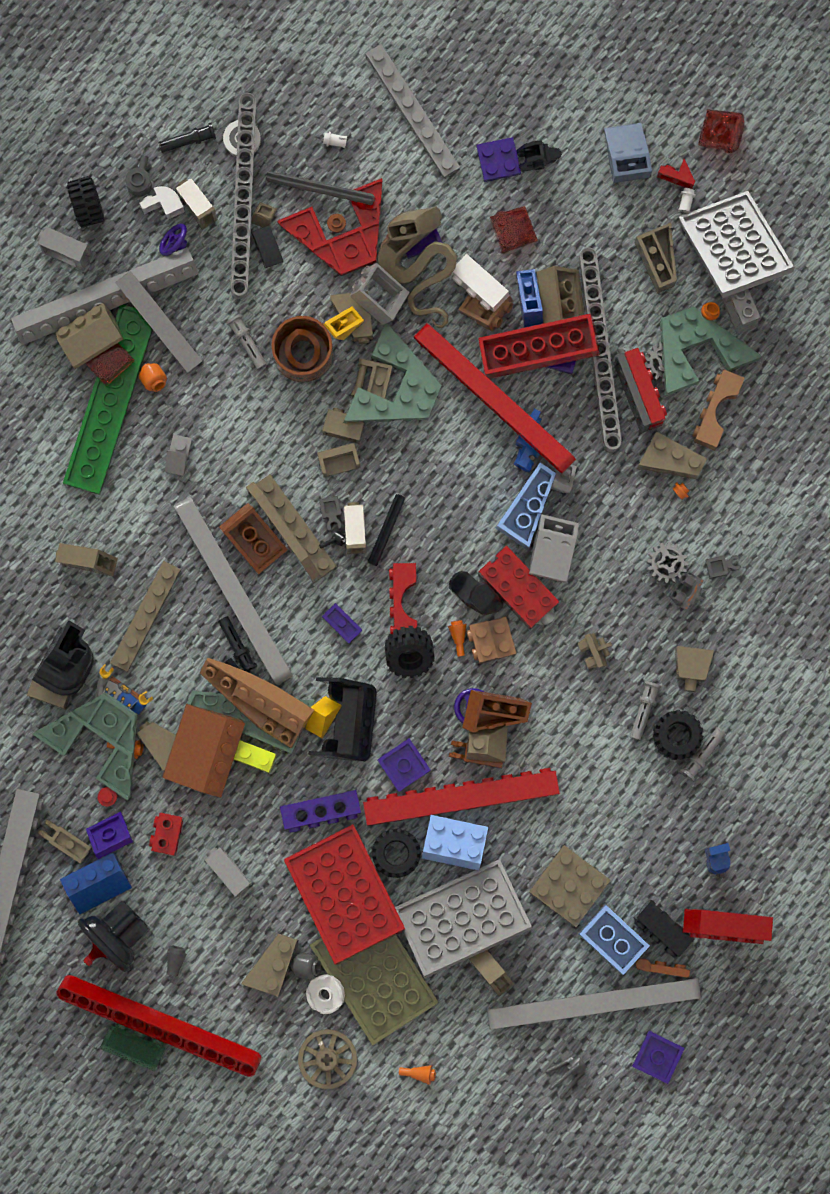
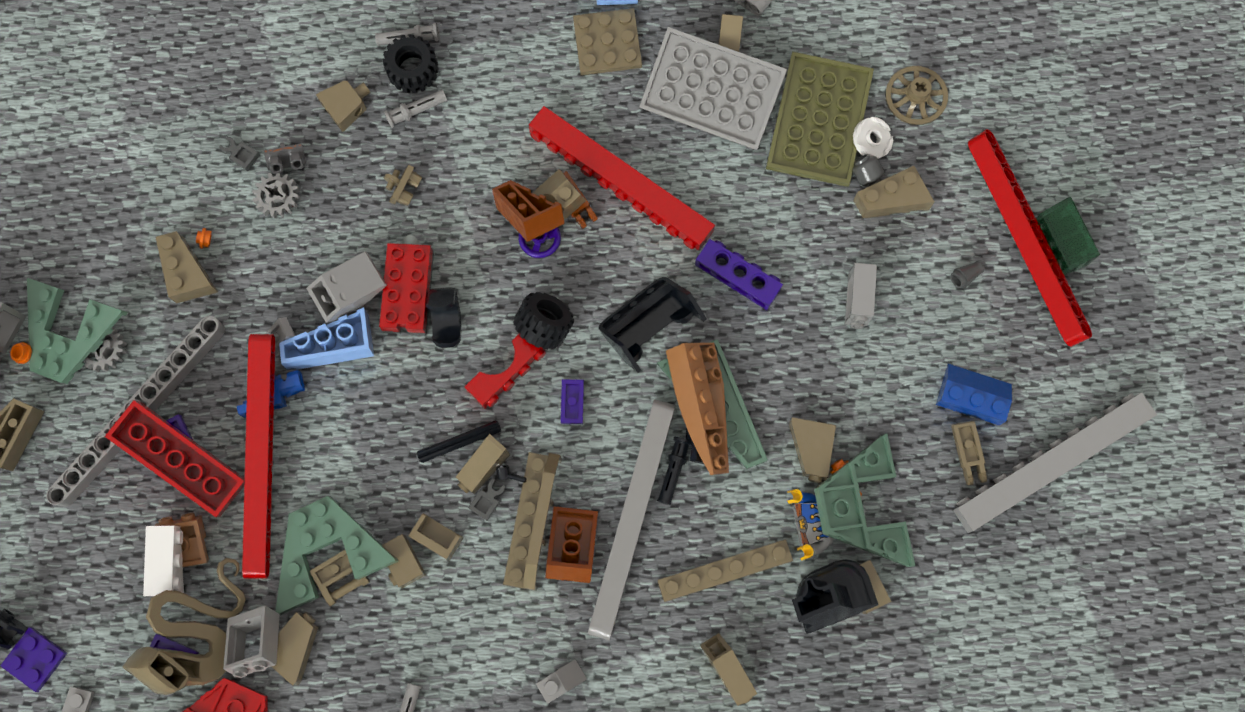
camera: 130 degrees left, 5 degrees down
(107, 797) = (901, 453): red plate -> none
(109, 835) = (930, 418): dark purple plate -> none
(114, 935) = (1001, 337): black piece -> none
(167, 834) = (879, 375): red brick -> none
(203, 750) = (786, 407): dark orange slope -> none
(255, 757) = (749, 365): neon yellow brick -> none
(296, 330) = (340, 658): dark orange piece -> none
(322, 717) = (656, 345): yellow slope -> none
(344, 323) = (306, 645): yellow slope -> none
(344, 894) = (785, 193): red plate -> none
(384, 840) = (713, 168): black tyre -> none
(403, 765) = (638, 245): dark purple plate -> none
(424, 1074) = (855, 16): orange cone -> none
(455, 842) = (660, 148): light blue brick -> none
(458, 632) = (489, 304): orange cone -> none
(491, 640) = (471, 272): medium nougat plate -> none
(513, 229) = (90, 586): clear red slope -> none
(529, 298) = (142, 510): blue slope -> none
(560, 293) = (117, 488): dark tan slope -> none
(639, 388) = (142, 344): piece -> none
(709, 431) = (131, 261): medium nougat arch -> none

